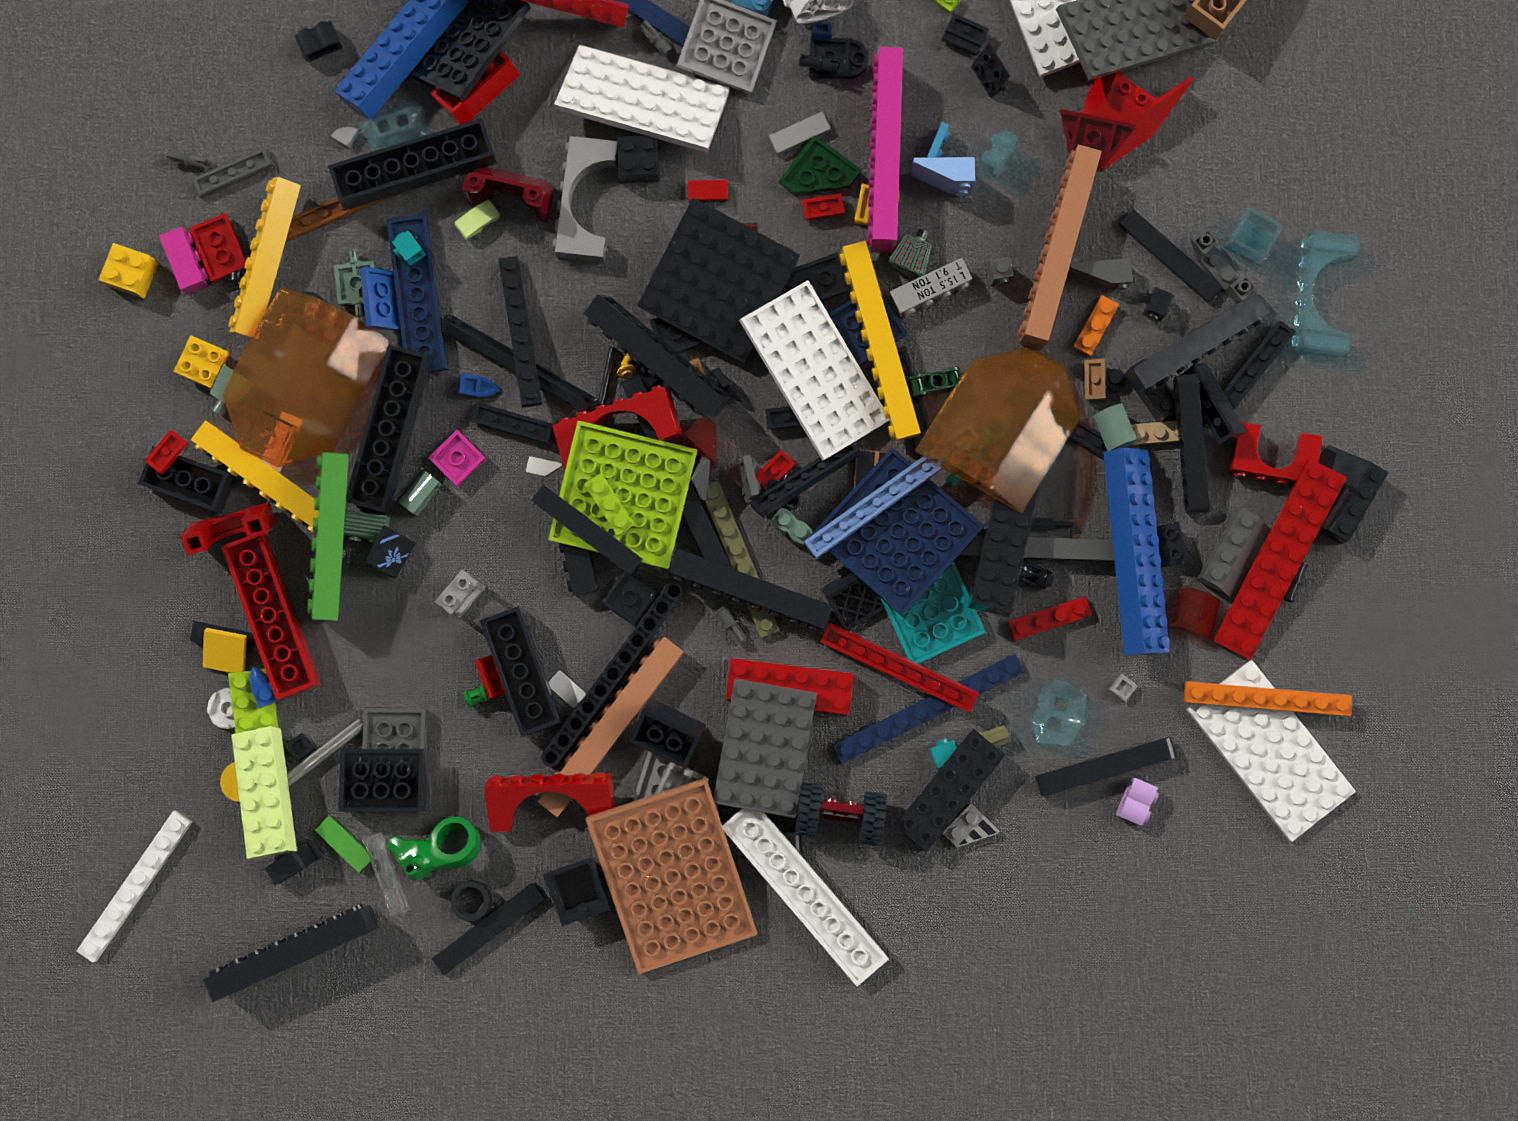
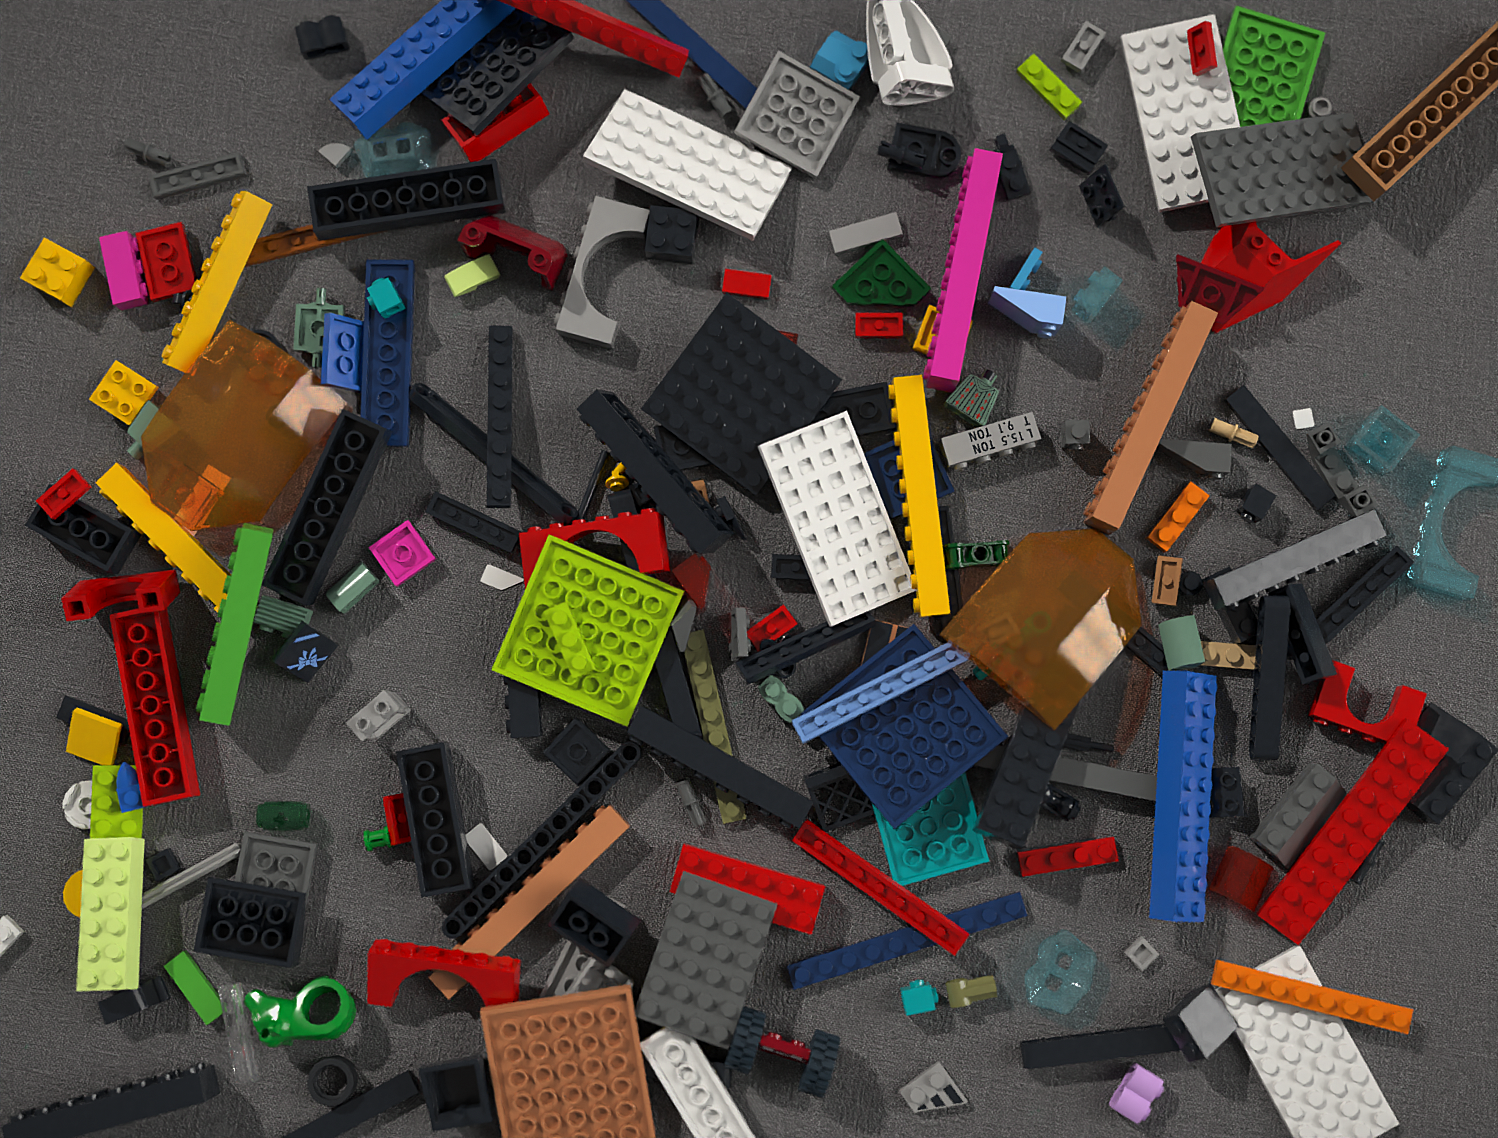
camera: 10 degrees right, 0 degrees up
(405, 685) = (271, 820): none -> clear green piece
(477, 385) = (439, 471): blue plate -> none
(586, 529) = (538, 665): black tile -> none
(822, 31) = (911, 118): dark blue tile -> none
(912, 62) = (1011, 170): none -> black hinge
(949, 790) = (916, 1044): black bracket -> none
(1131, 249) = (1233, 433): none -> tan axle
(1179, 734) = (1200, 1023): none -> brick
(1186, 229) = (1303, 418): none -> white sticker

